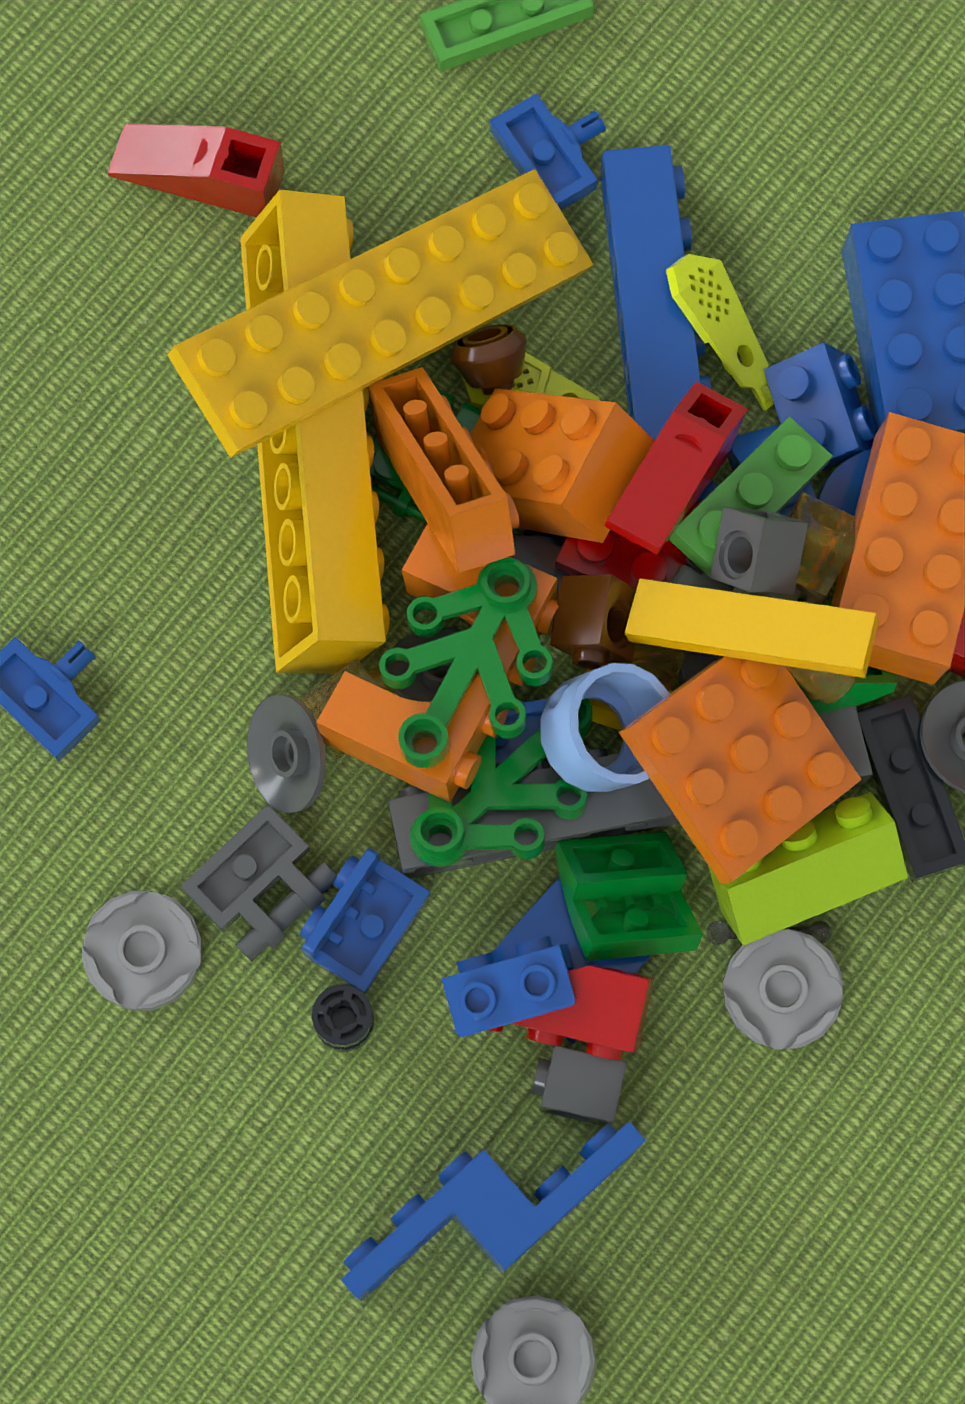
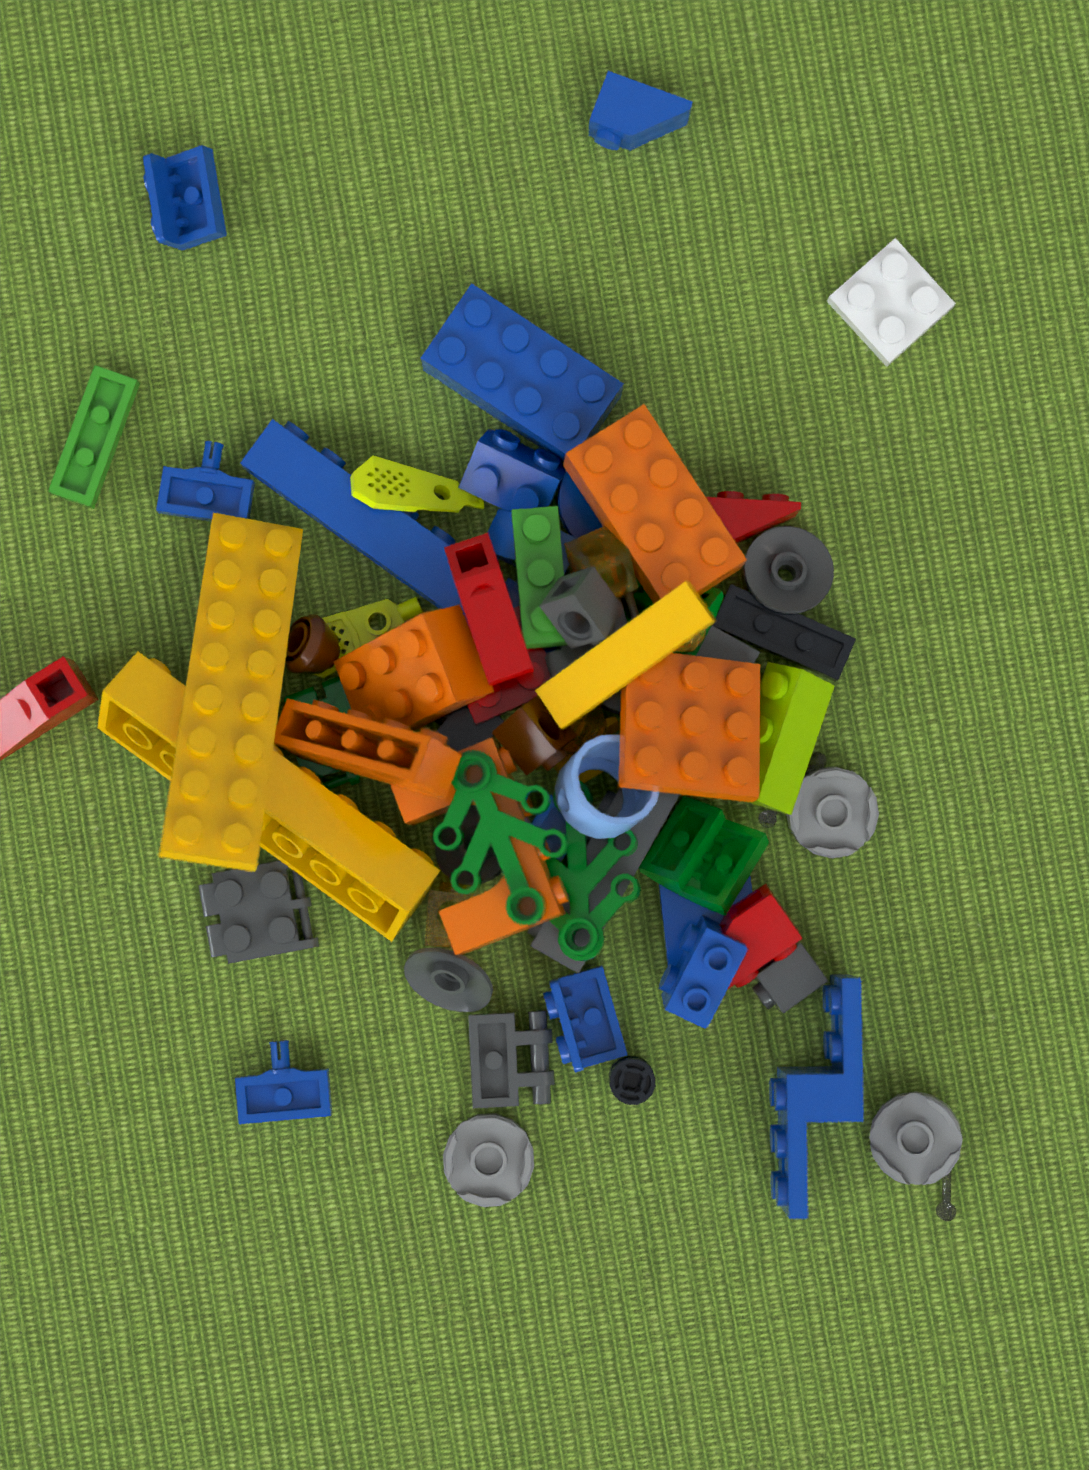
camera: 45 degrees left, 10 degrees up
(192, 527) = (256, 913): none -> dark grey plate

